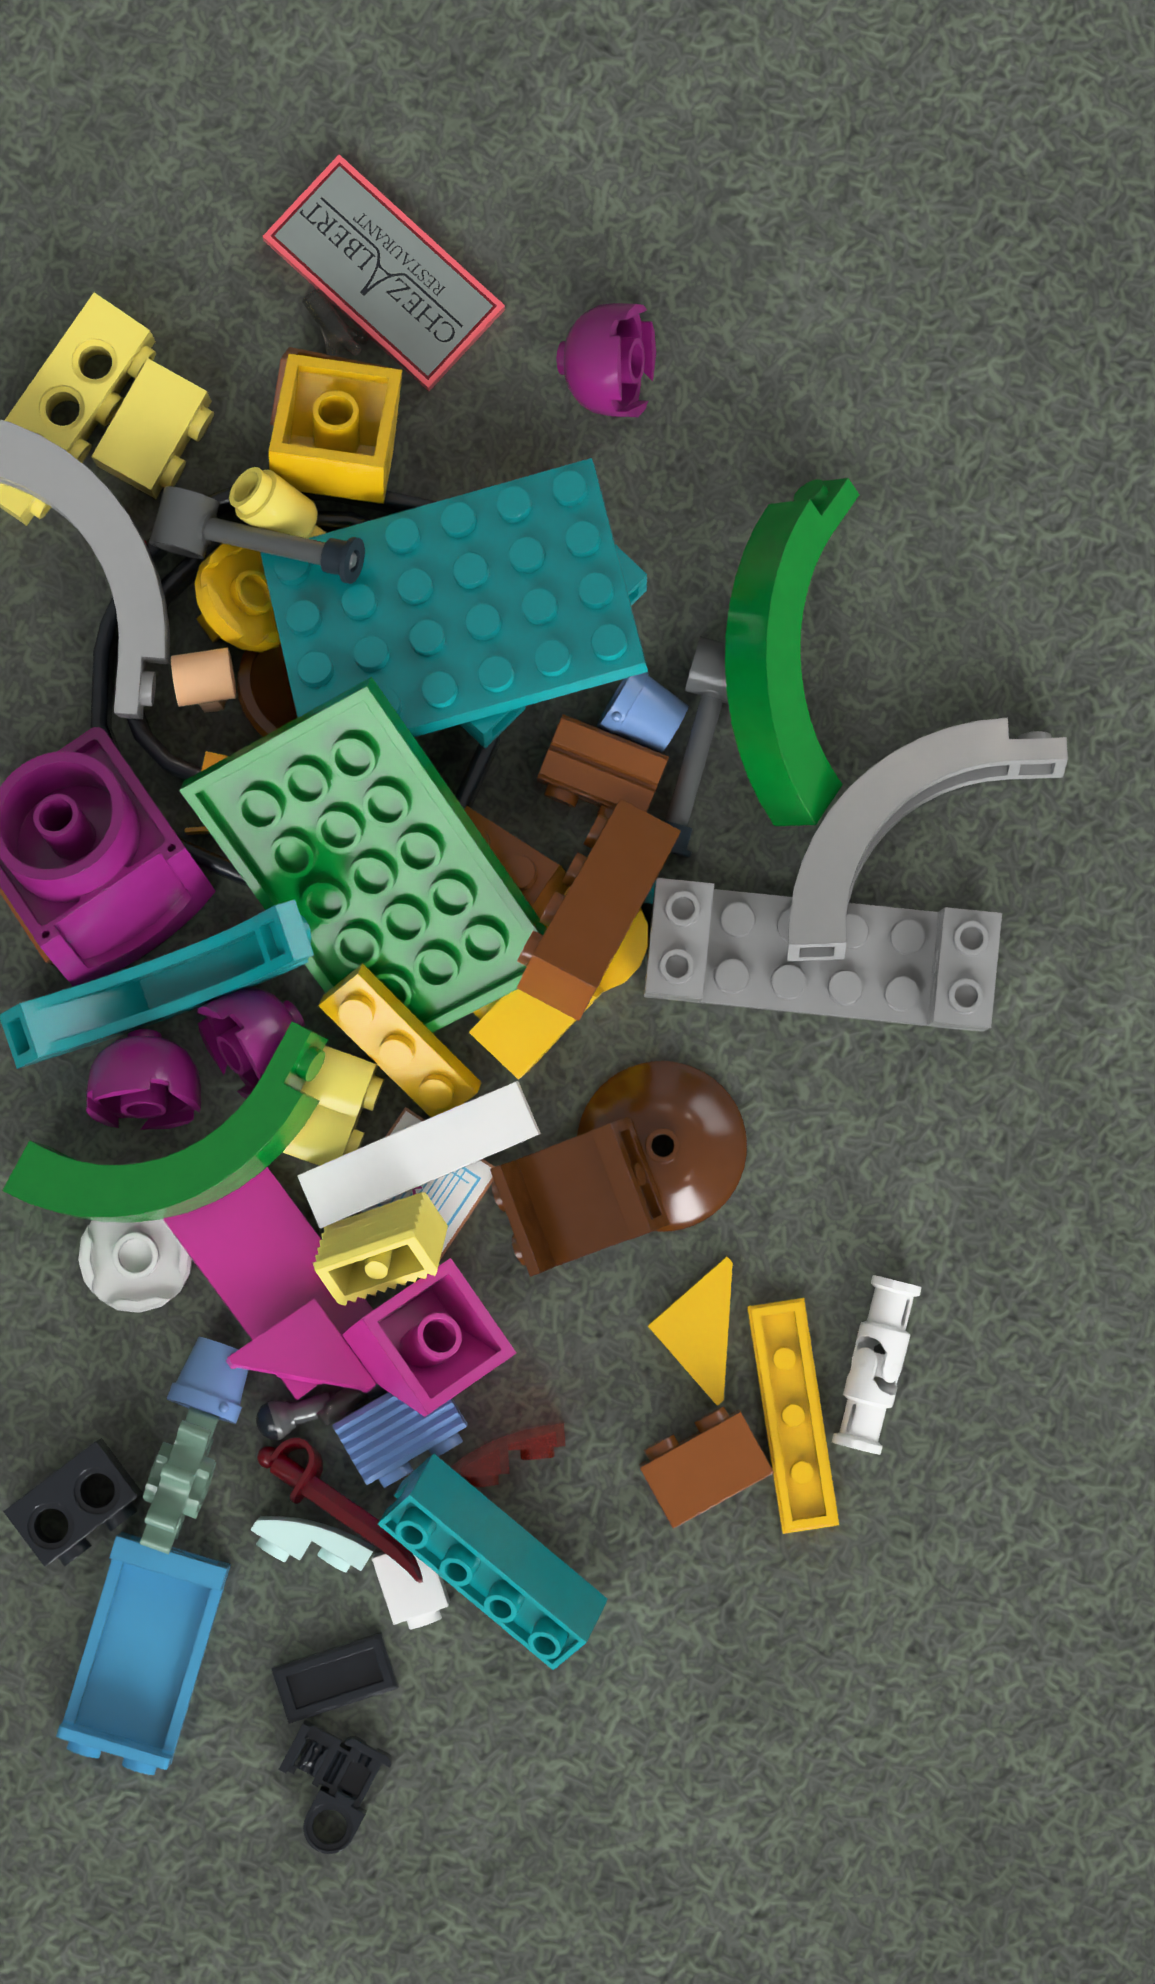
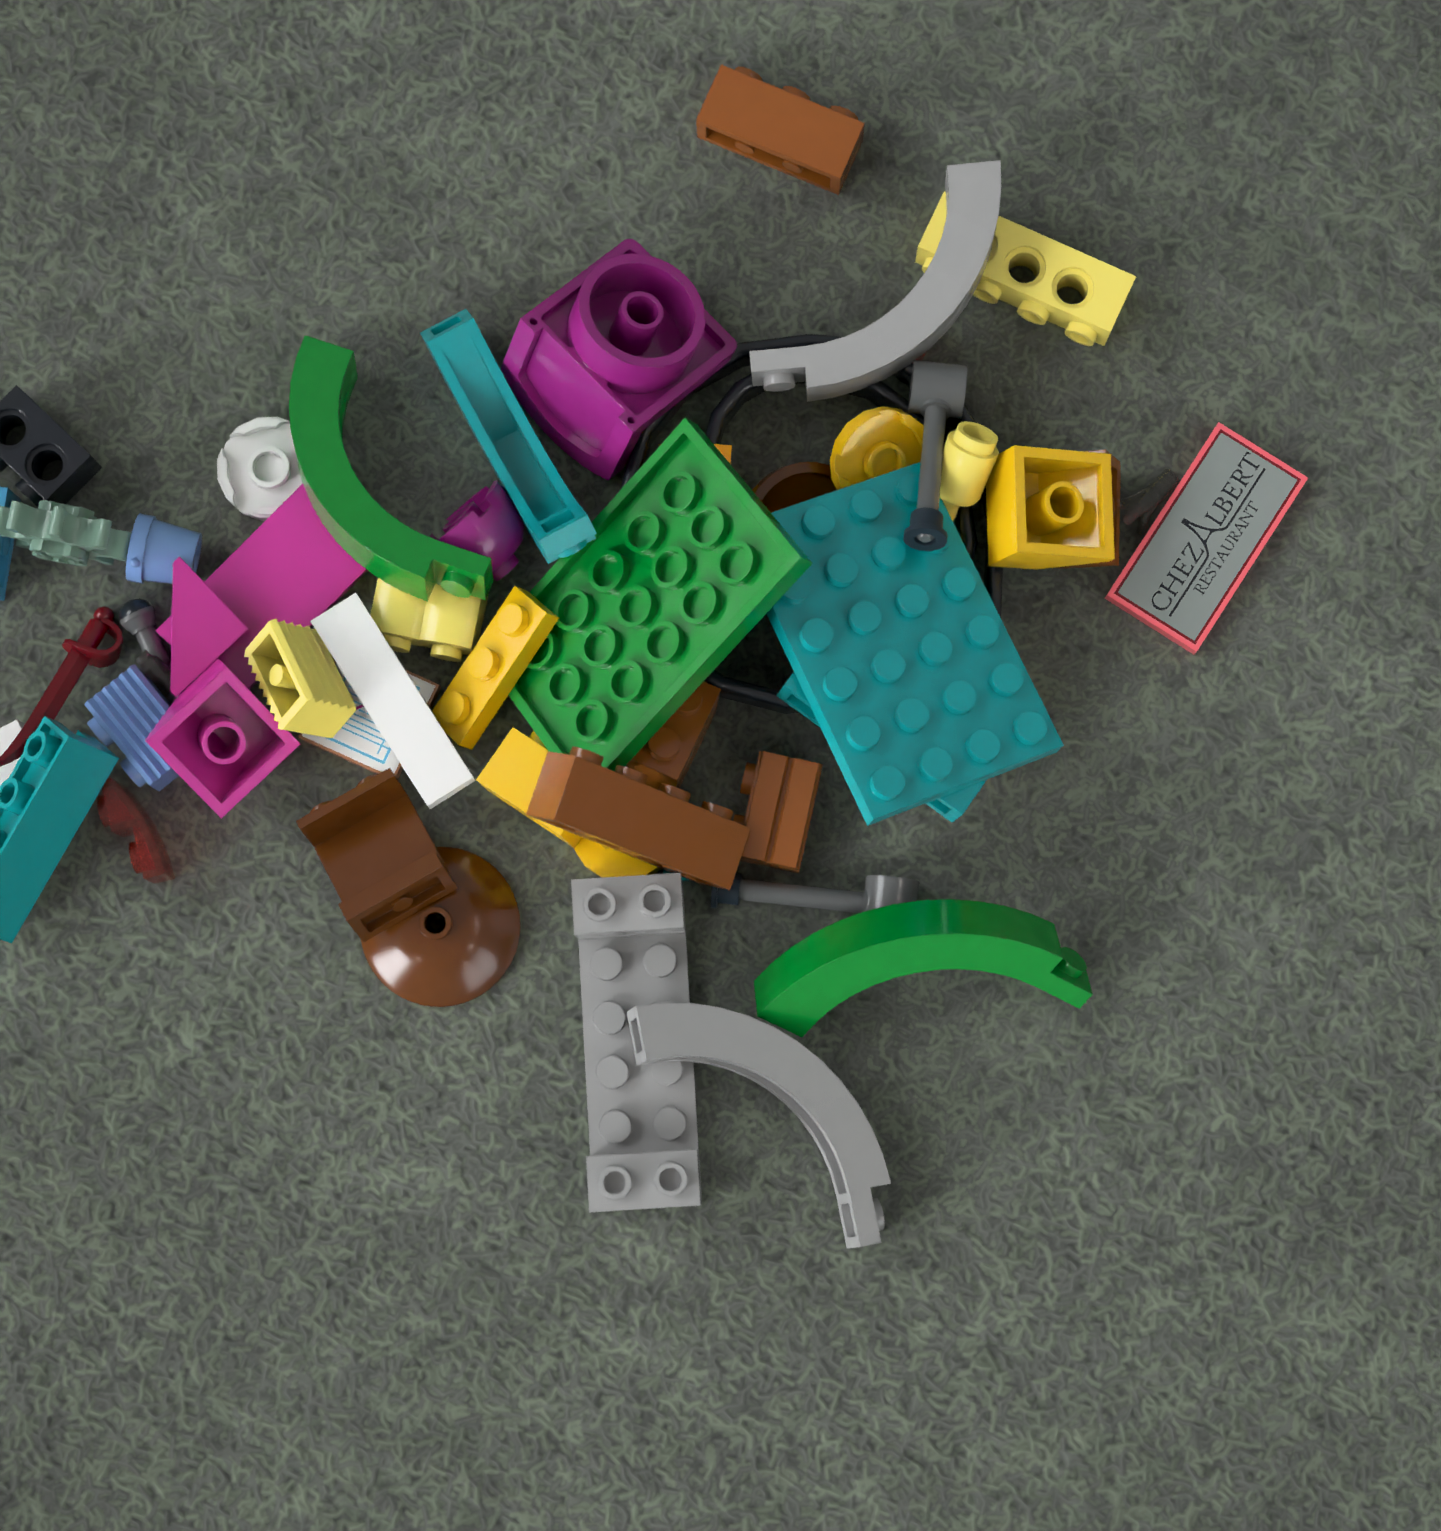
camera: 90 degrees right, 5 degrees down
(144, 1080) = (425, 444): magenta cylinder -> none
(154, 429) = (1021, 354): light yellow brick -> none
(204, 679) = (796, 430): light nougat piece -> none
(292, 1536) = (33, 646): light aqua slope -> none
(607, 359) = (1171, 747): magenta cylinder -> none
(643, 713) = (838, 841): medium blue piece -> none
(697, 1329) = (274, 987): yellow tile -> none
(704, 1466) = (146, 1013): dark orange brick -> none
(793, 1415) = (207, 1089): yellow tile -> none
(872, 1395) = (231, 1158): white piece -> none

